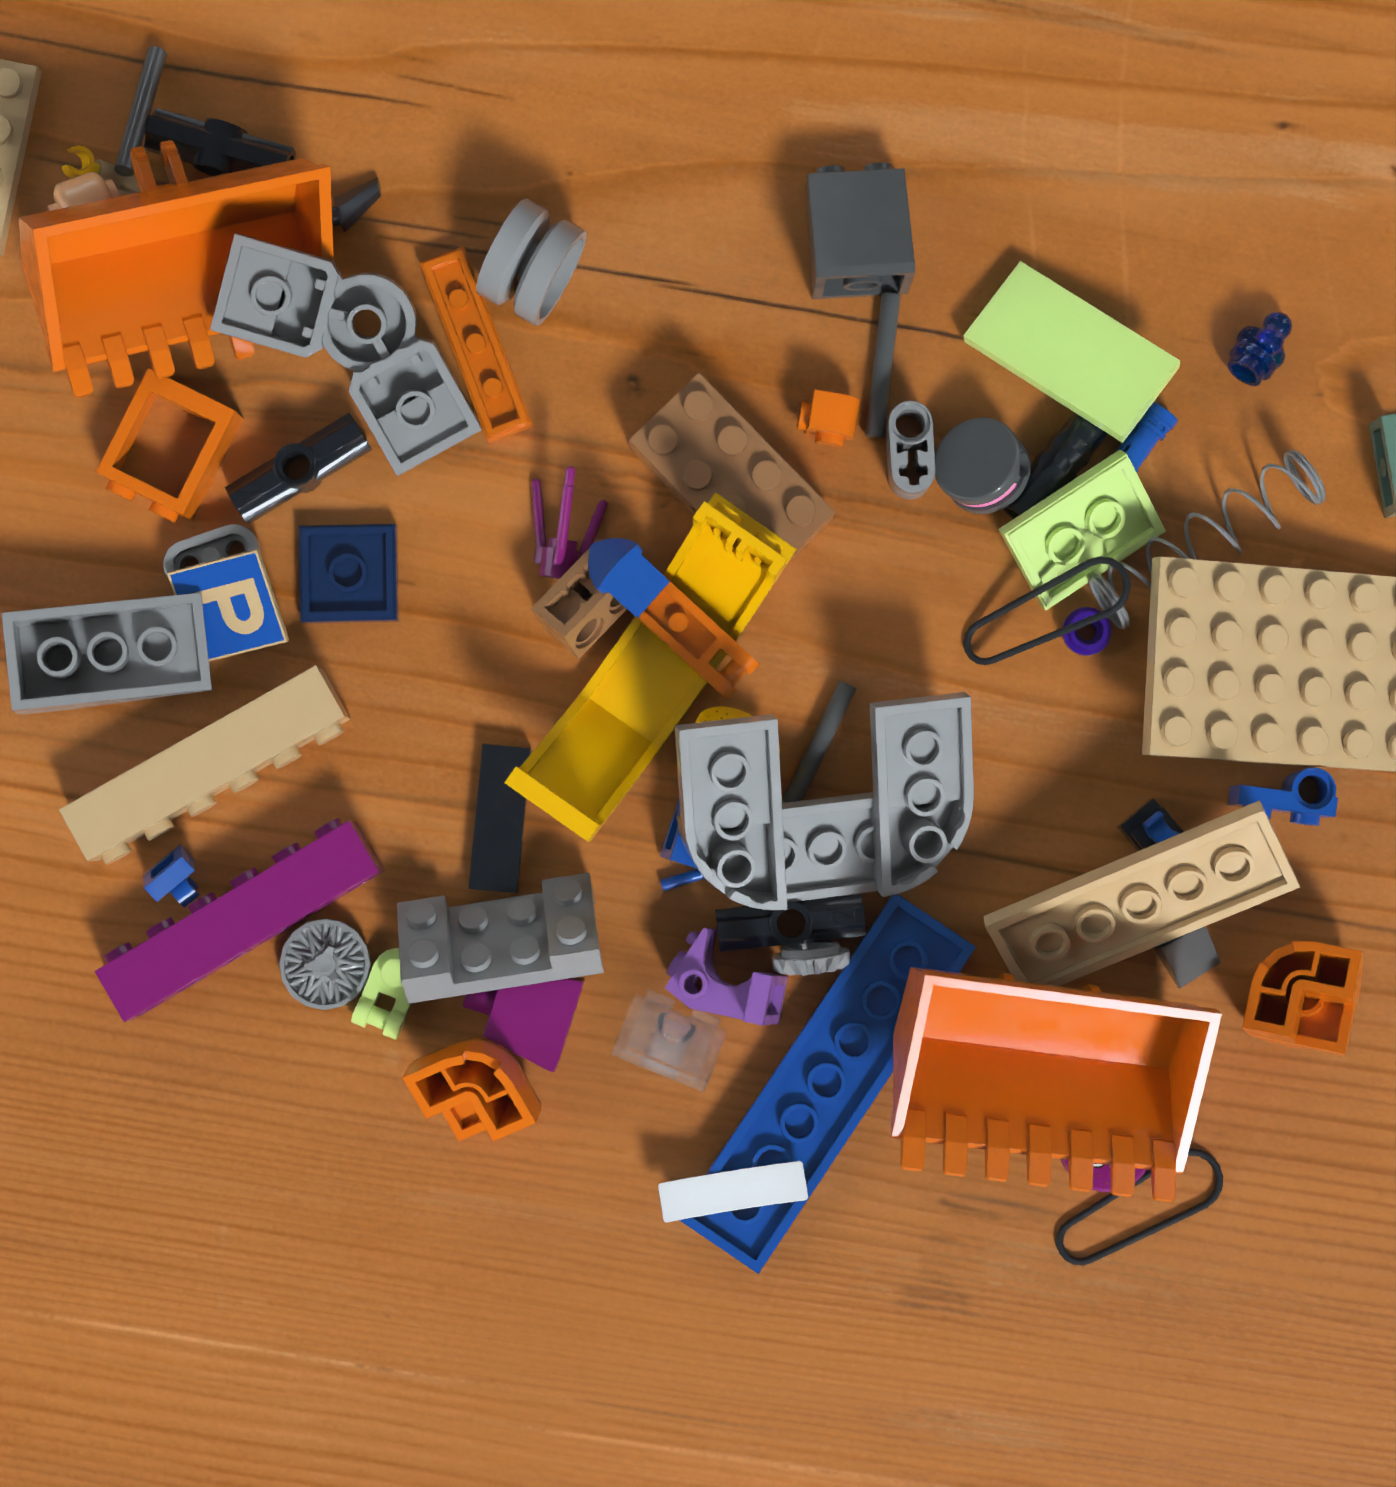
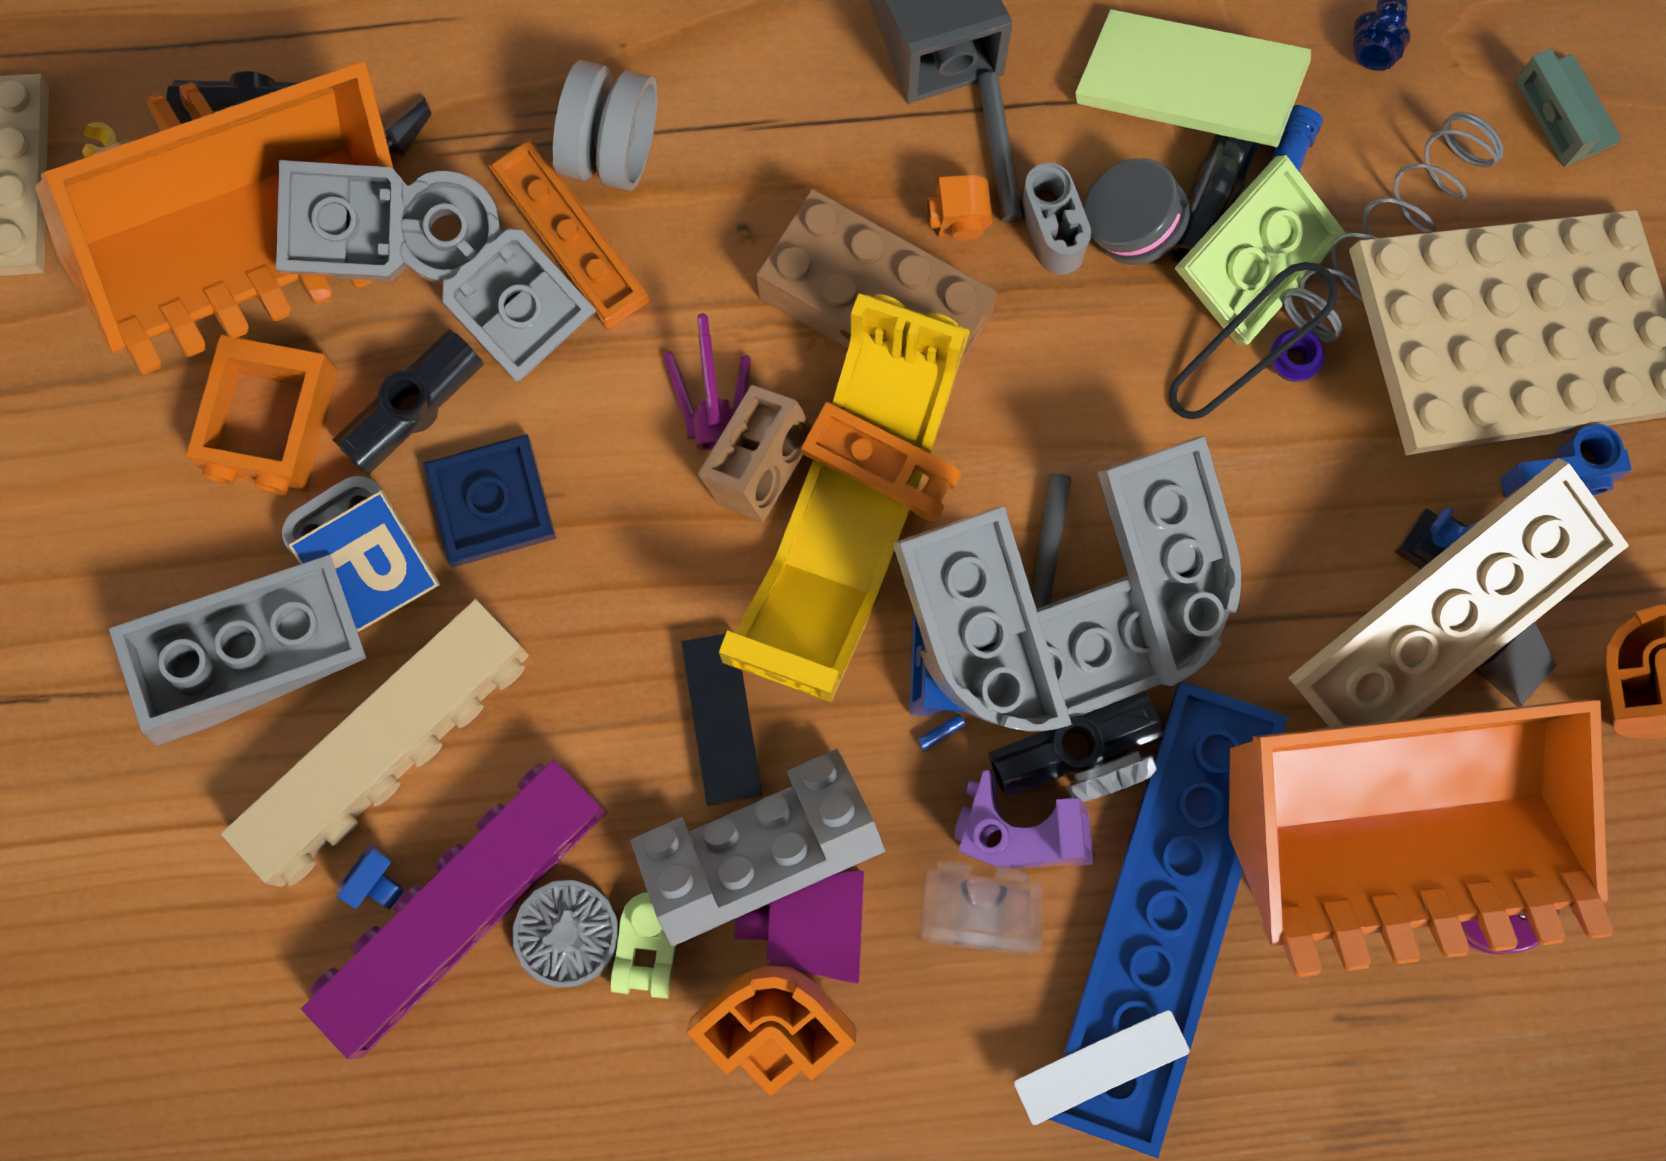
camera: 15 degrees left, 10 degrees down
(140, 109) = (159, 73): dark grey bar -> none
(622, 571) = (792, 407): blue tile -> none
(1149, 1231) = (1574, 992): black piece -> none

